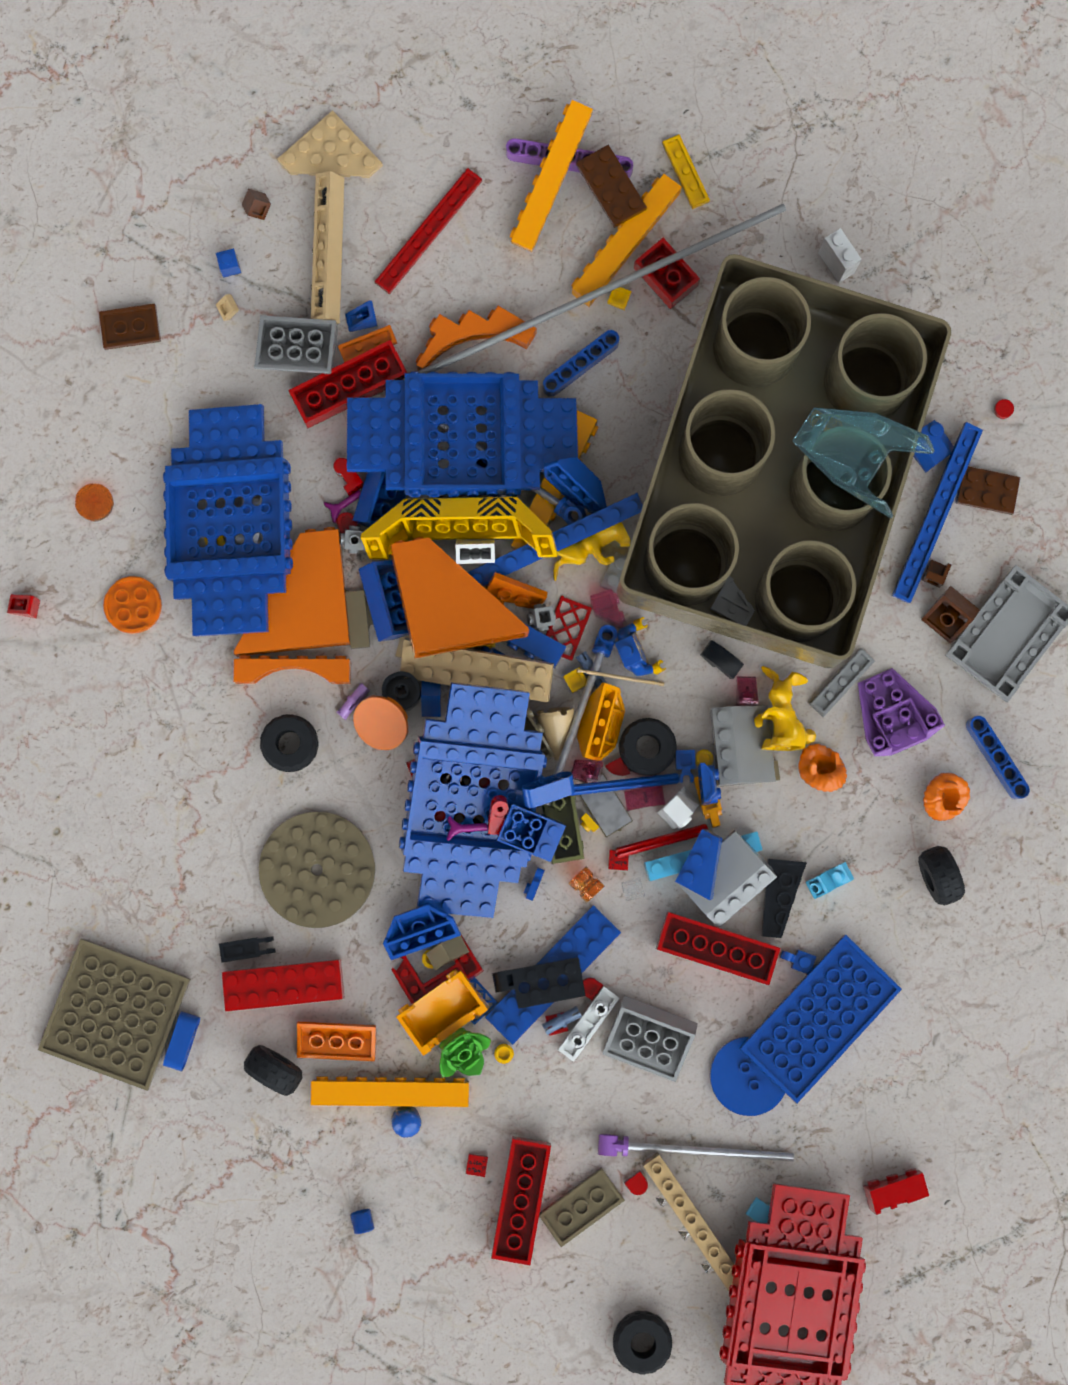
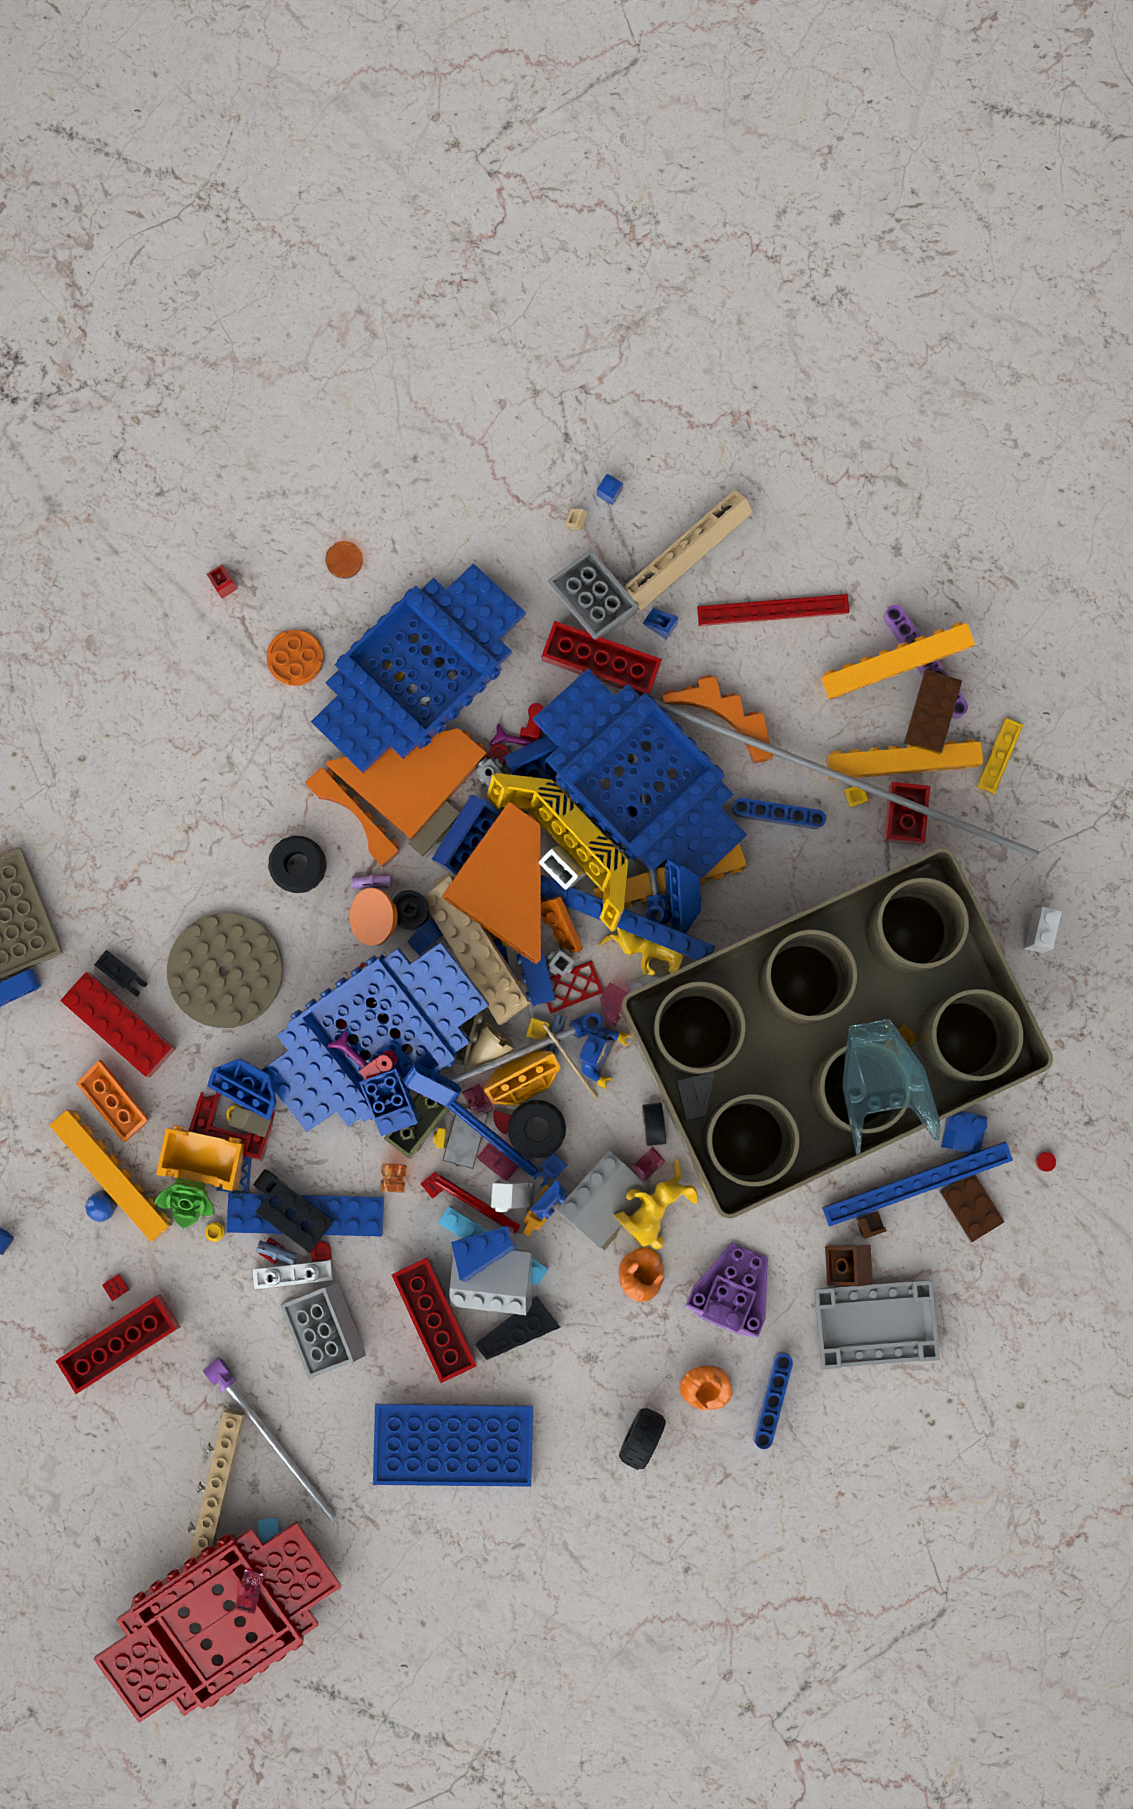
camera: 55 degrees right, 0 degrees up
(129, 326) = (496, 463): reddish brown plate -> none
(256, 204) = (672, 468): reddish brown panel -> none
(273, 1070) = (48, 1074): black tyre -> none
(330, 148) = (765, 483): tan plate -> none
(366, 342) = (644, 643): orange plate -> none
(531, 888) = (353, 1140): blue plate -> none
(581, 1207) = (154, 1393): dark tan tile -> none
(637, 1184) = (208, 1419): red tile -> none
(648, 1361) = (78, 1538): black tyre -> none
(704, 756) = (567, 1178): yellow plate -> none
(741, 1083) = (350, 1429): blue plate -> none
(794, 1264) = (249, 1592): none -> clear pink slope
(801, 961) = (483, 1390): blue plate -> none
(829, 880) = (563, 1357): medium azure slope -> none
(842, 682) = (721, 1229): light grey tile -> none
(895, 1190) = (376, 1619): red wedge -> none

